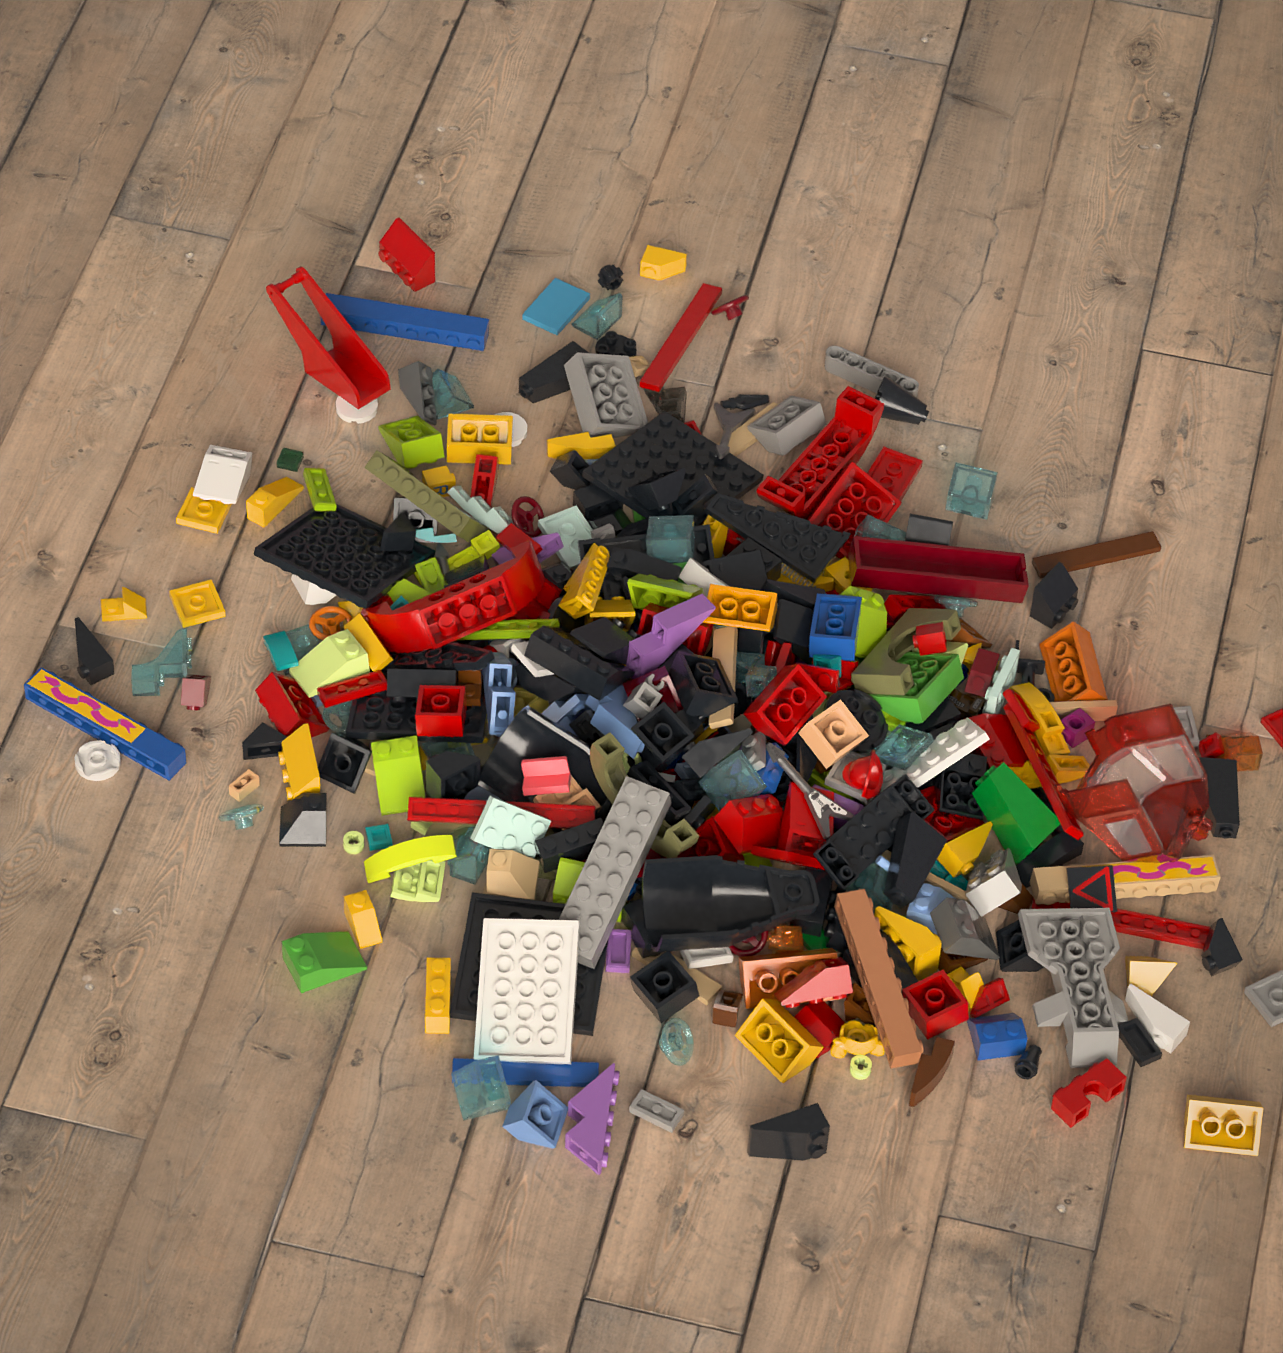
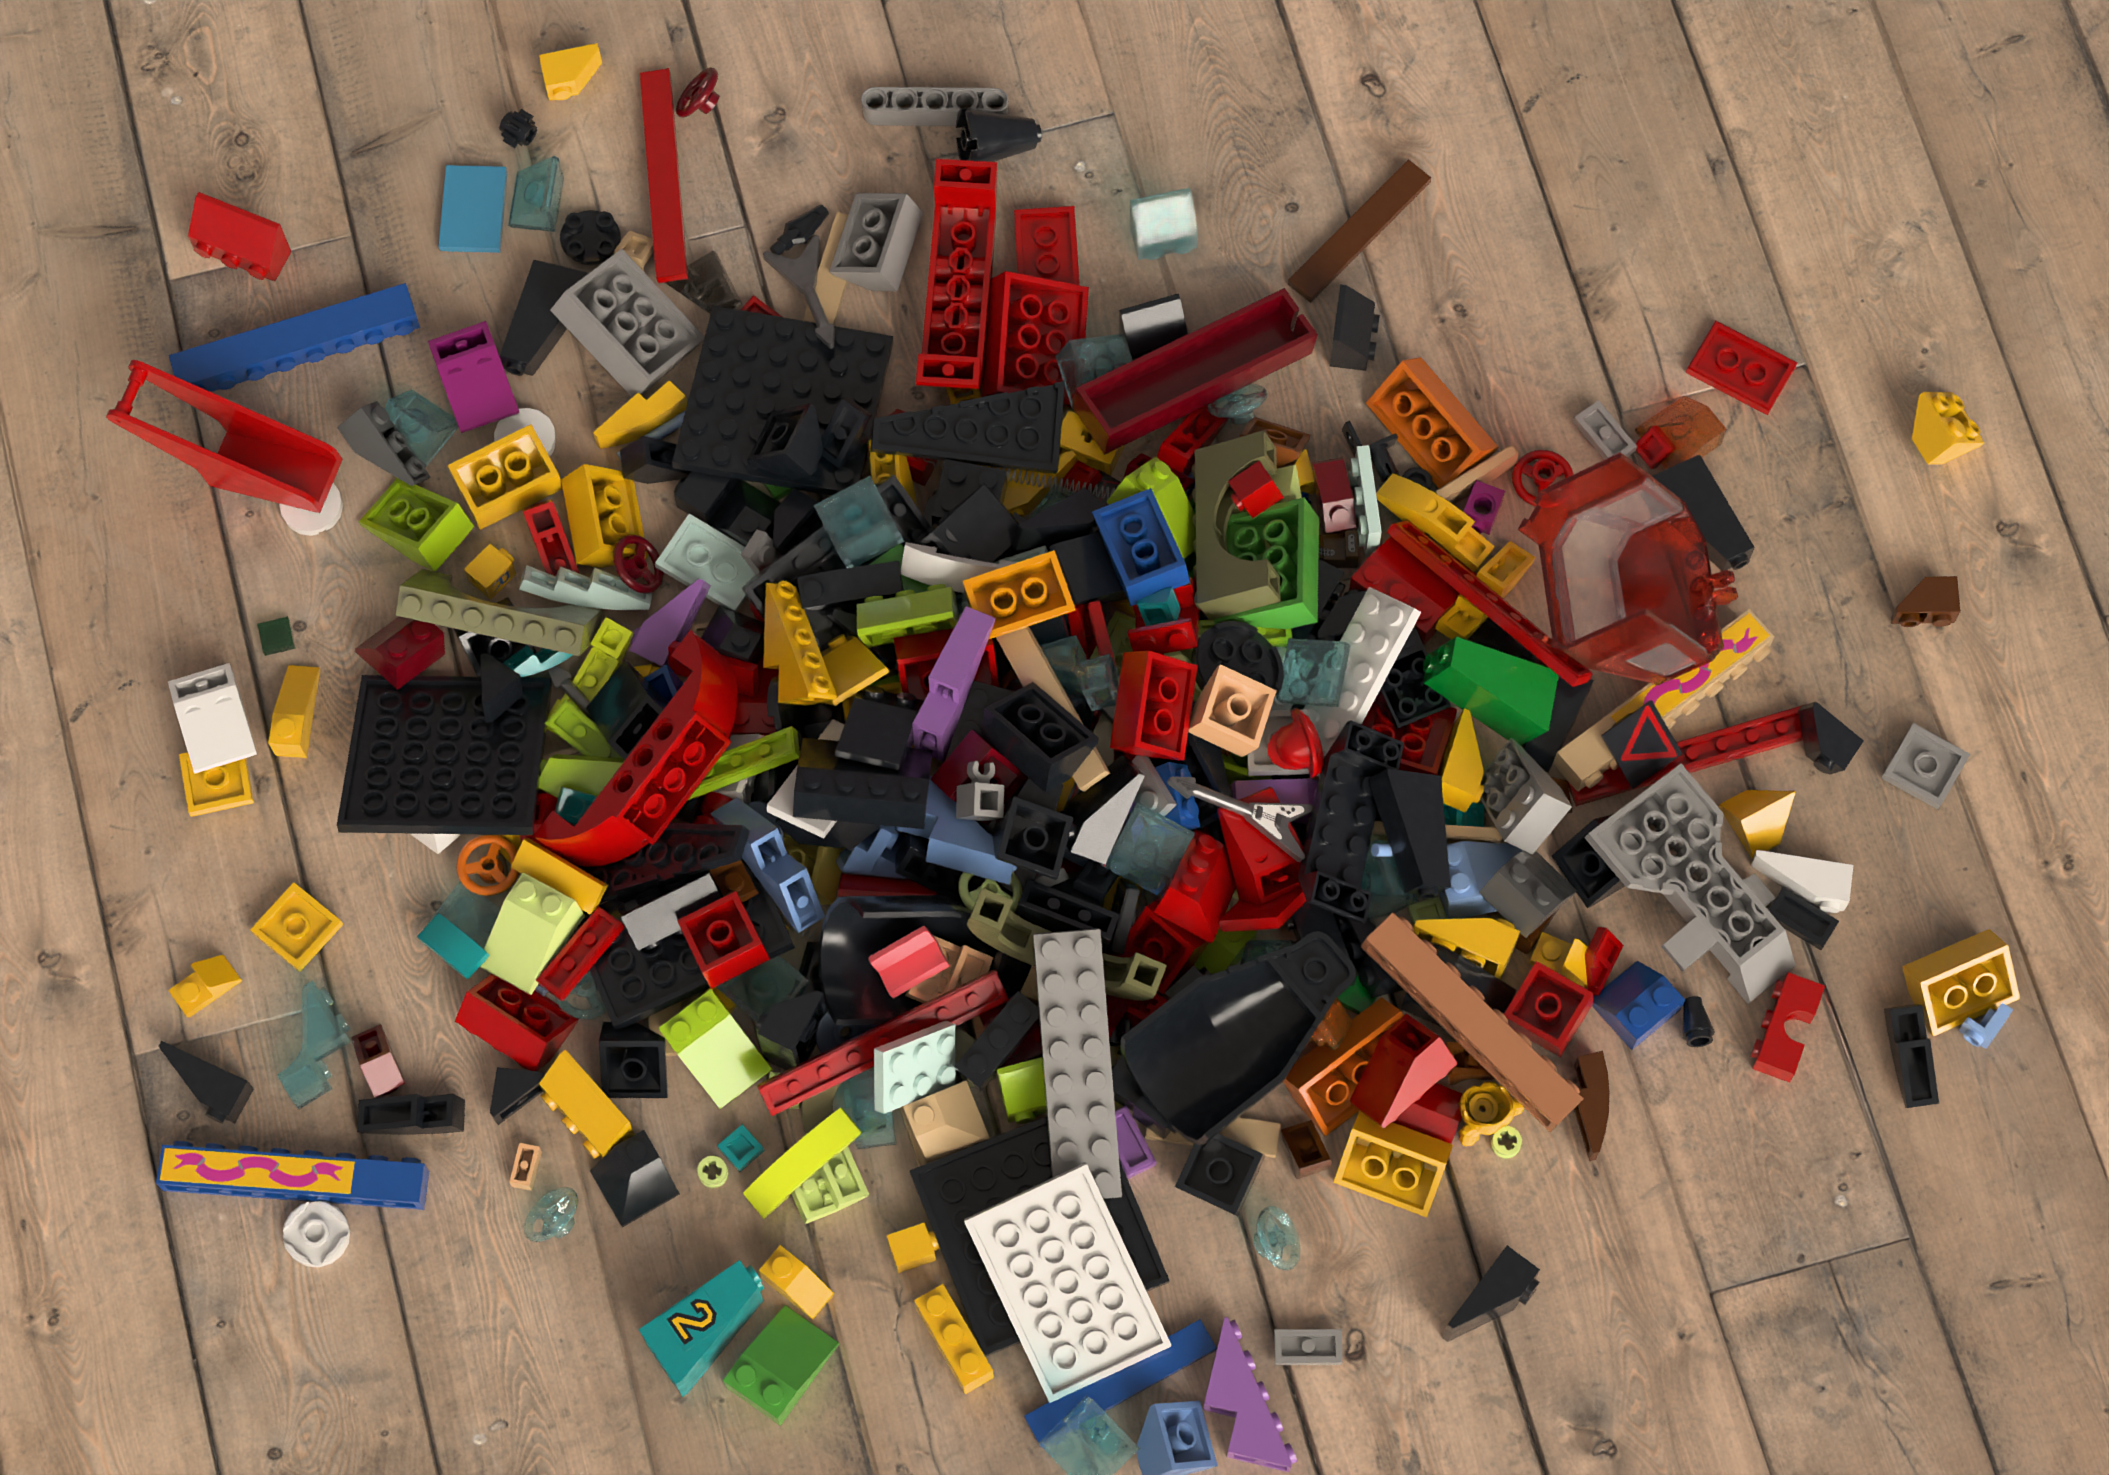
camera: 25 degrees left, 20 degrees up
(196, 727) = (411, 1115): none -> black slope
(292, 908) = (702, 1324): none -> teal slope
(319, 489) = (347, 666): lime tile -> none
(359, 495) = (403, 649): none -> dark red slope
(446, 937) = (912, 1247): none -> yellow brick
(496, 381) = (473, 377): none -> magenta slope
(513, 536) = (658, 619): red tile -> none
(524, 477) = (600, 512): none -> yellow slope
(1021, 710) = (1413, 527): red tile -> none
(1162, 1147) = (1912, 1055): none -> black slope
(1226, 1158) = (1984, 1033): none -> light blue bracket

